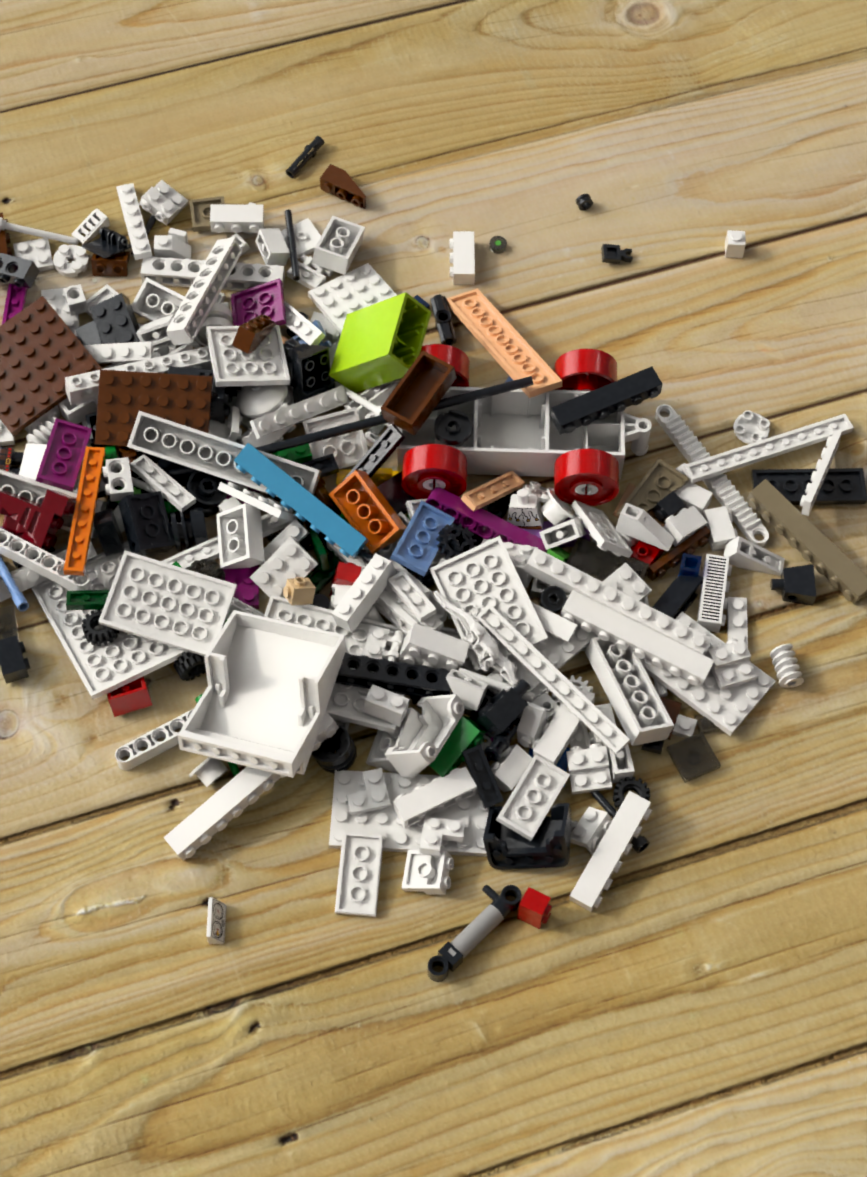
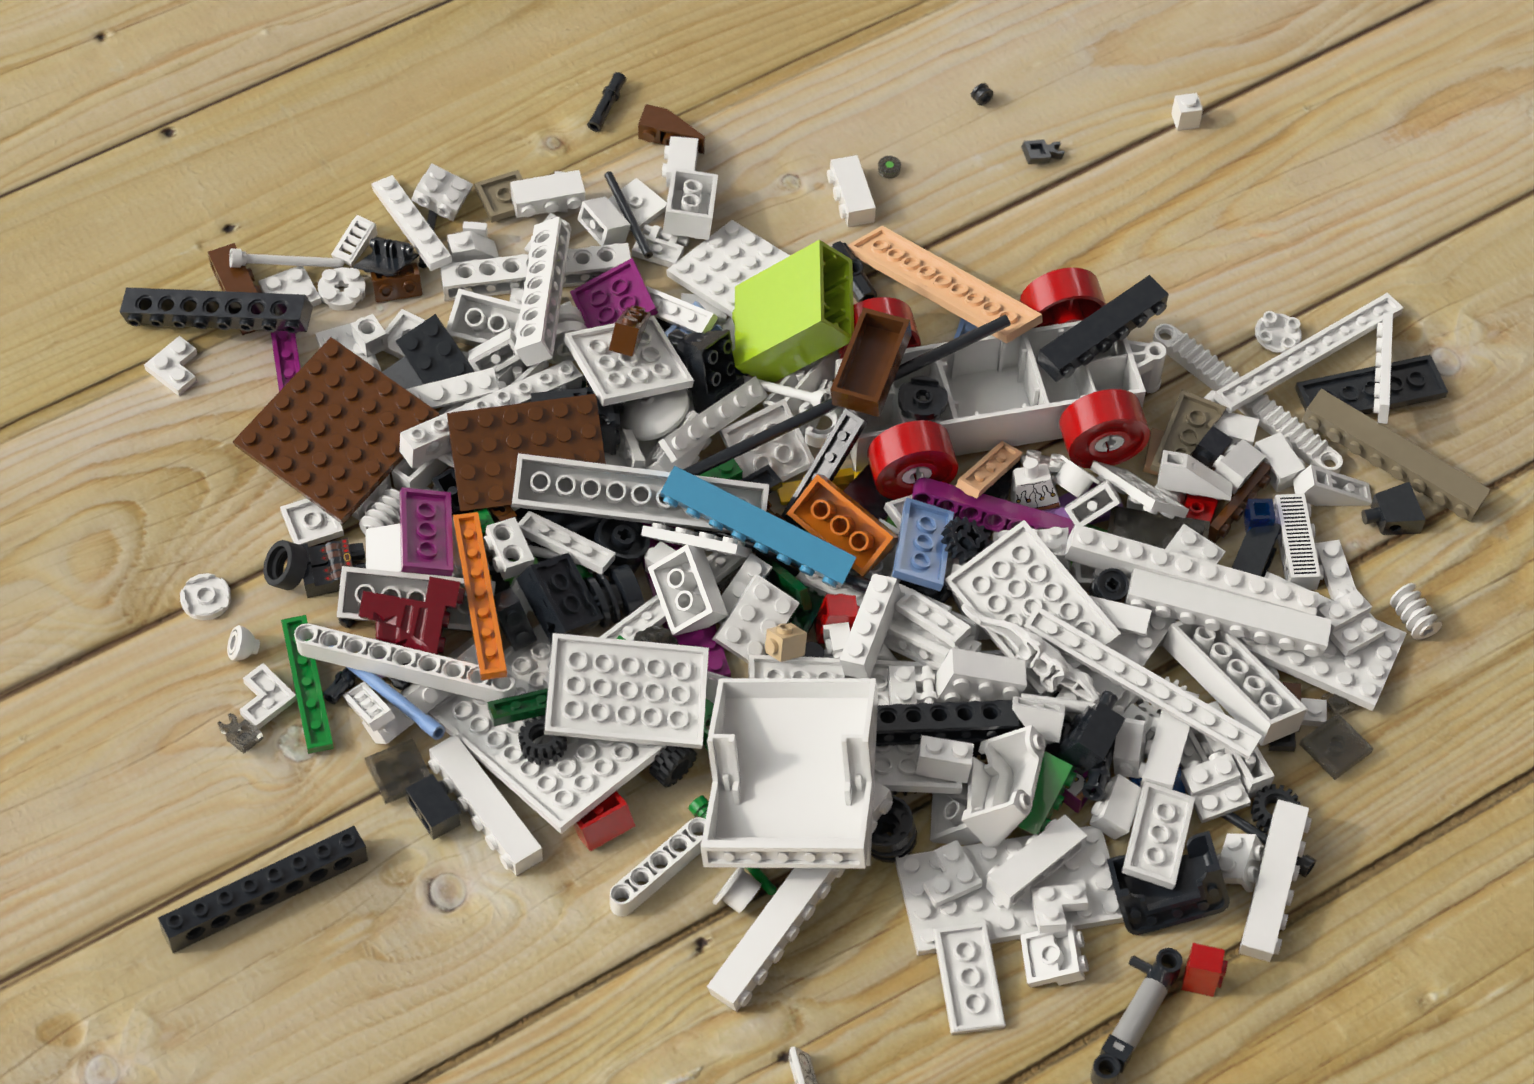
camera: 15 degrees left, 5 degrees down
(50, 666) = (485, 805): none -> white brick
(344, 207) = (681, 154): none -> white brick
(482, 776) = (1086, 816): black plate -> none

